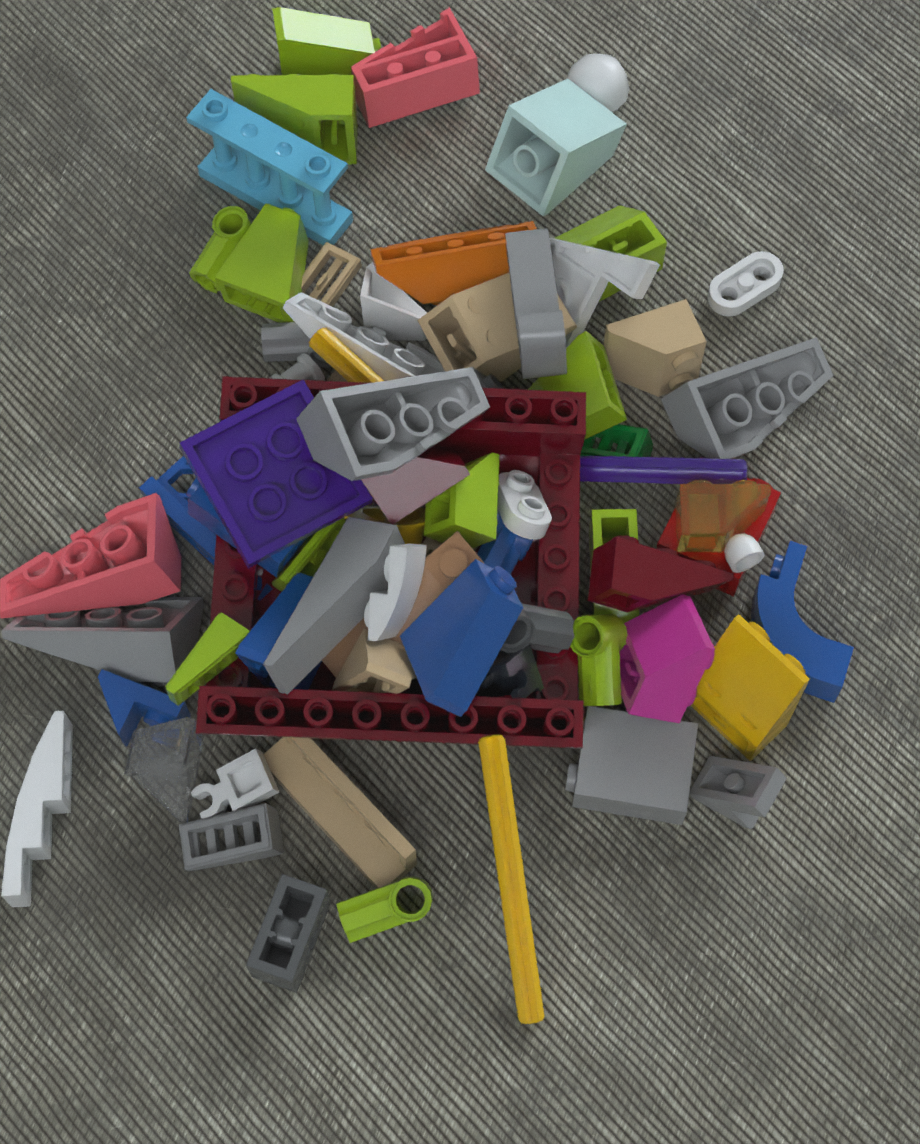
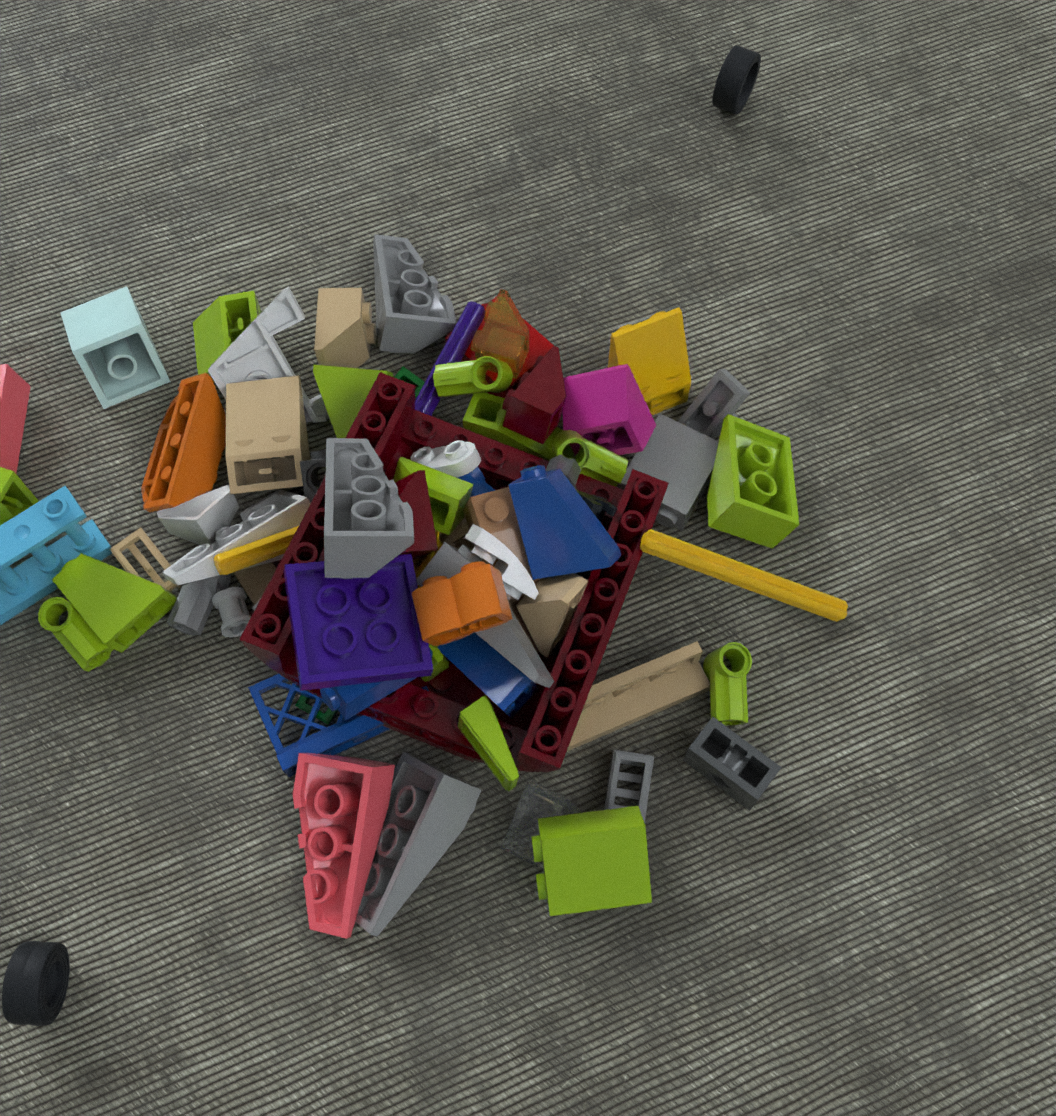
camera: 70 degrees left, 0 degrees up
(43, 793) = (534, 937): white slope -> none
(132, 700) = (477, 842): blue slope -> none
(134, 817) = (592, 860): none -> lime brick
(241, 785) = (587, 765): white plate -> none
(323, 562) = (461, 604): none -> orange brick
(536, 304) = (301, 396): light grey beam -> none
(602, 79) = (65, 293): white hair -> none
(643, 498) = (469, 377): none -> lime piece
(651, 858) = (752, 484): none -> lime slope
(742, 285) = (305, 266): white plate -> none
(743, 552) = (539, 332): white hinge -> none
(776, 613) = (586, 338): blue arch -> none

